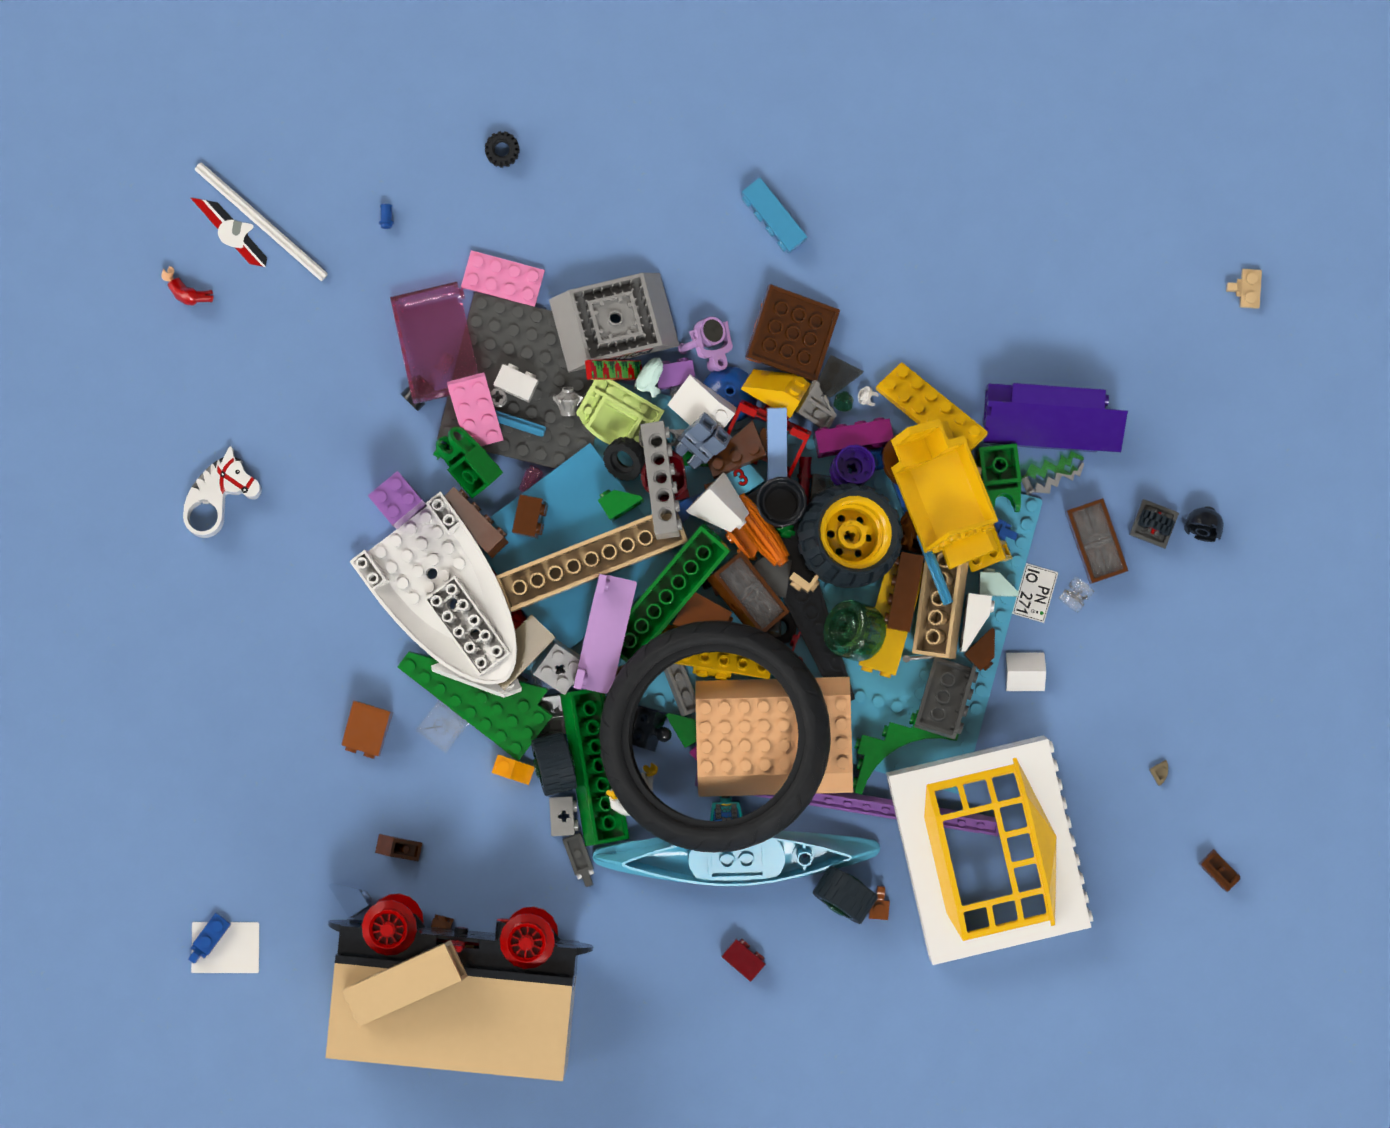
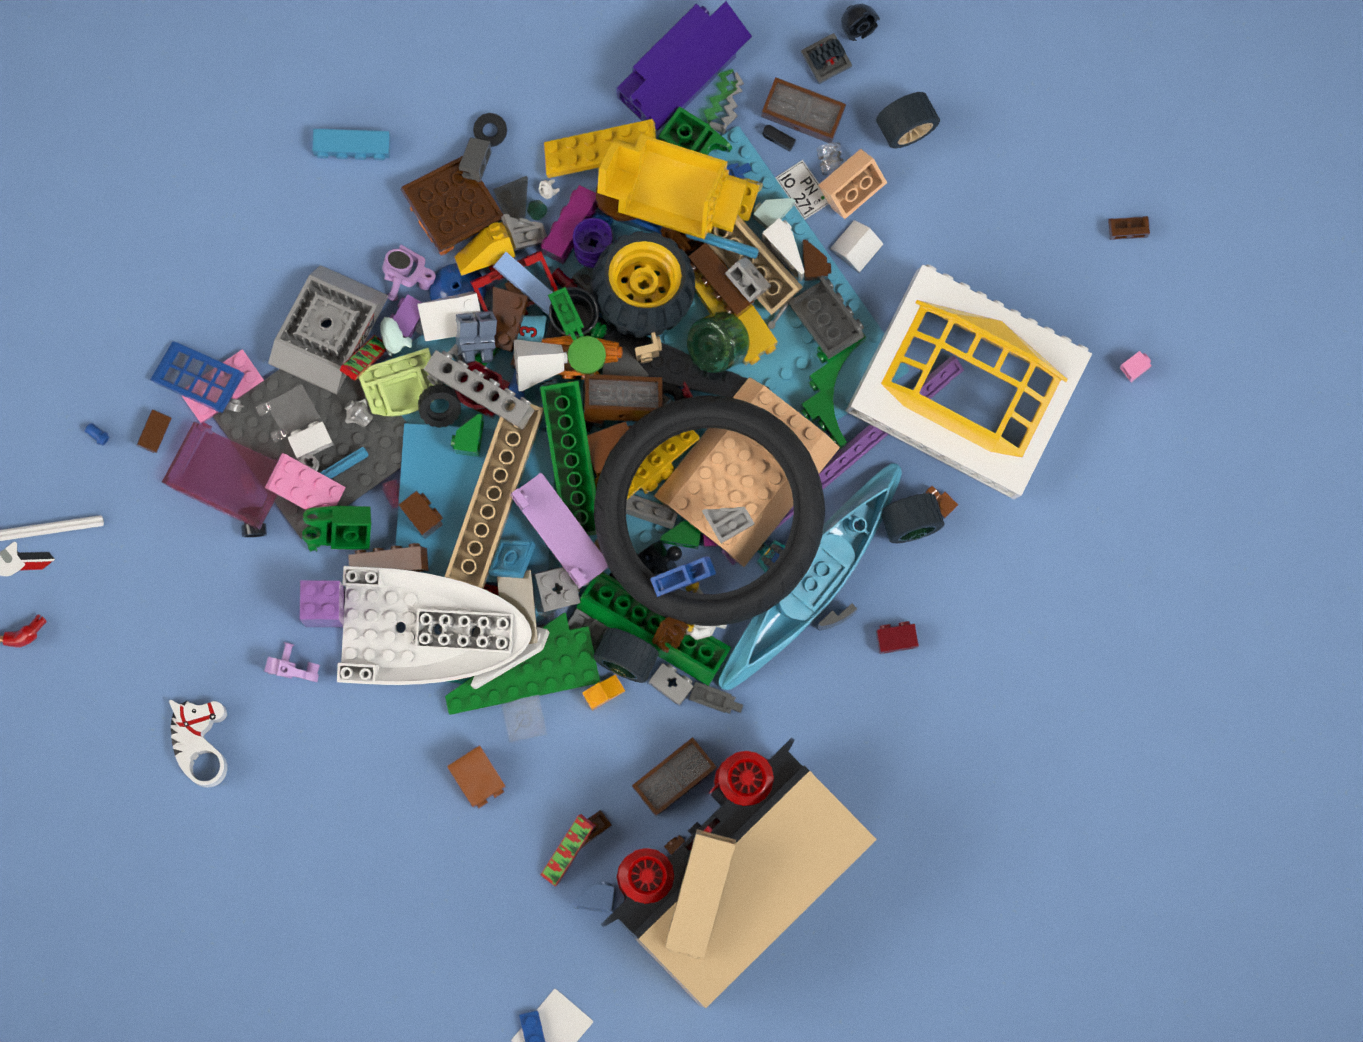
camera: 55 degrees left, 5 degrees down
(326, 515) = (287, 669): none -> lavender piece
(369, 845) = (568, 850): none -> tile
(424, 257) = (153, 431): none -> reddish brown hinge
(492, 878) = (674, 777): none -> clear brick
(493, 254) = (197, 377): none -> blue piece
(494, 301) = (234, 405): none -> light grey plate
(505, 160) = (120, 293): black tyre -> none
(526, 348) = (289, 411): none -> clear flag
(553, 614) = (511, 558): none -> dark azure tile
(598, 784) = (670, 632): none -> reddish brown hinge
(644, 761) = (683, 576): none -> blue slope
(714, 760) = (728, 521): none -> light grey wing
(714, 898) = (833, 620): none -> dark grey slope
(757, 539) = (586, 355): none -> bright green tile
(774, 497) = (566, 312): none -> green hinge
(842, 321) = (475, 159): none -> dark grey hinge
(864, 312) = (494, 119): none -> black tyre
(921, 613) = (748, 279): none -> light grey brick
(1059, 541) = (778, 137): none -> black bar
(1070, 628) = (852, 183): none -> light nougat brick
(1113, 968) = (1136, 366): none -> bright pink brick
(1156, 629) = (908, 120): none -> black wheel
(1159, 772) = (1017, 210): dark tan tile -> none

